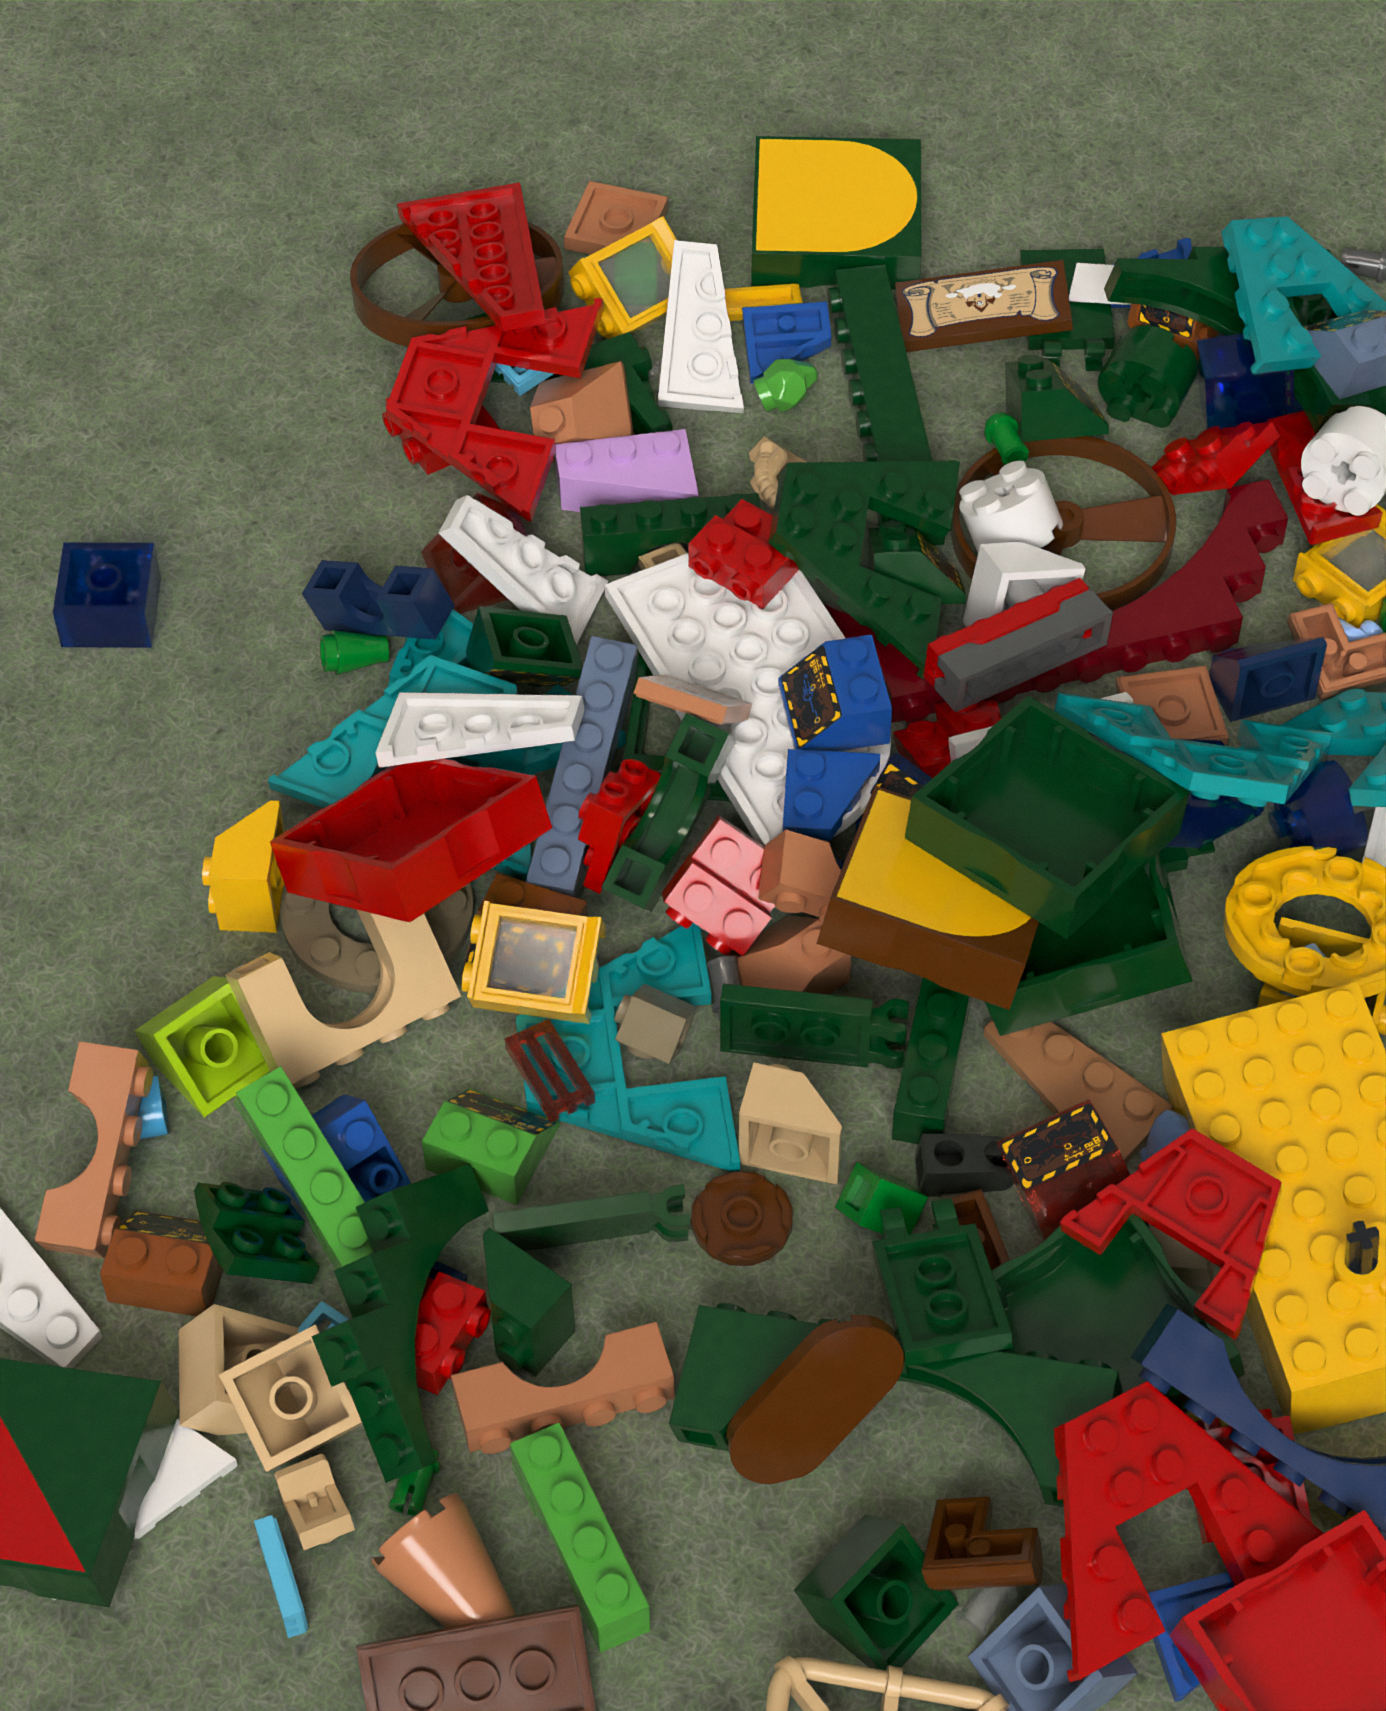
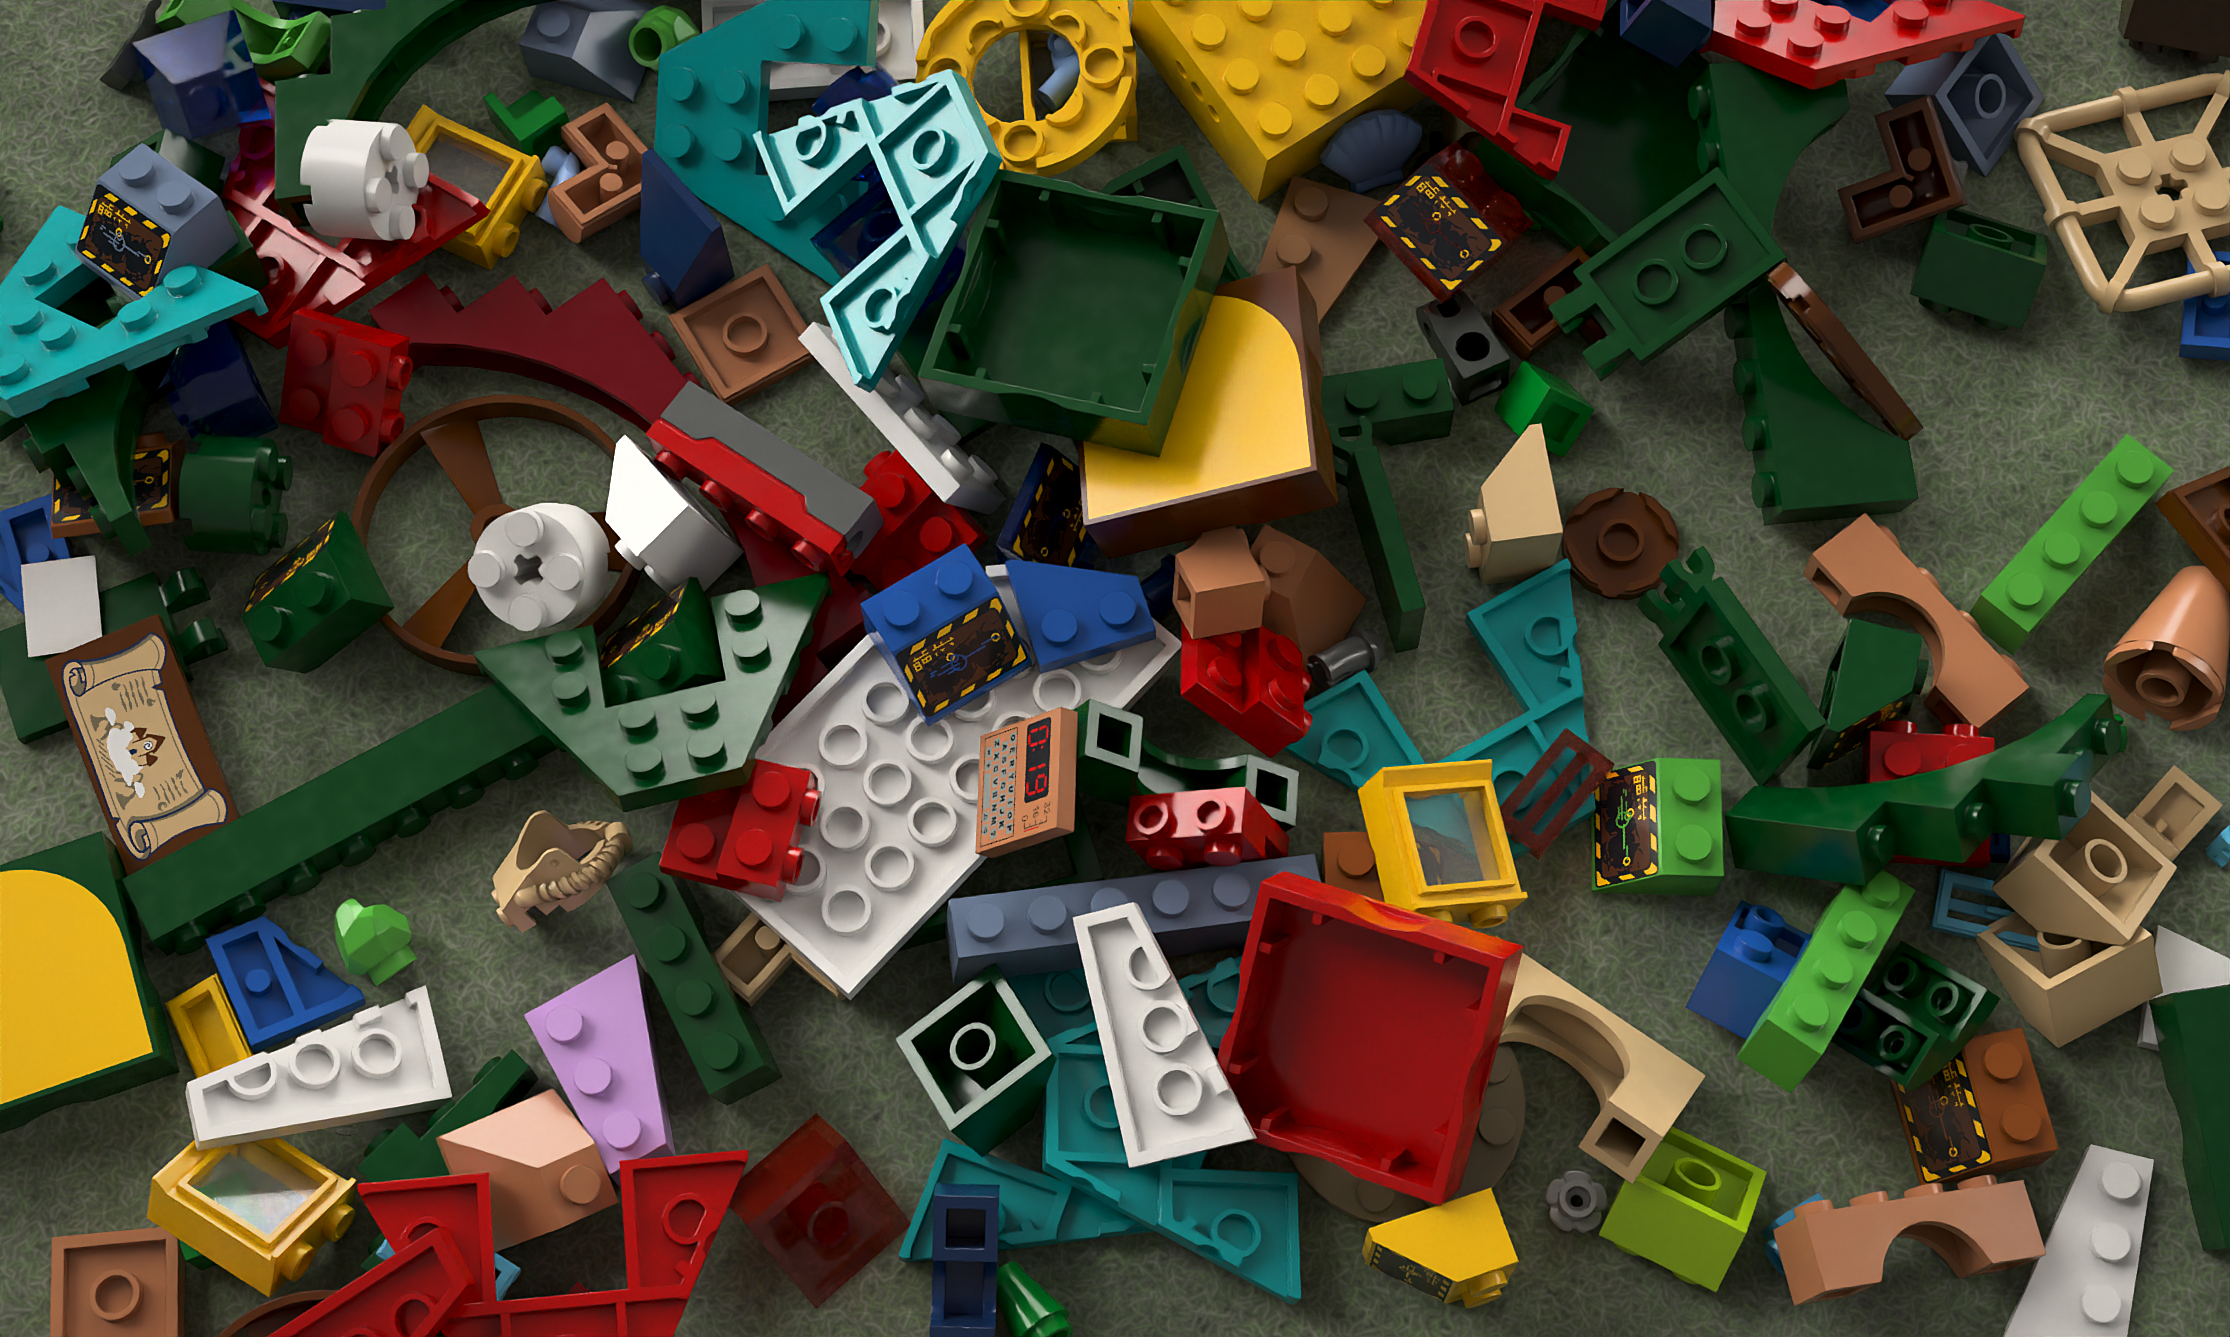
camera: 110 degrees left, 15 degrees up
(521, 565) = (852, 1109): white wing -> none
(653, 1023) = (1438, 705): dark tan brick -> none
(1002, 432) = (399, 624): green pin -> none

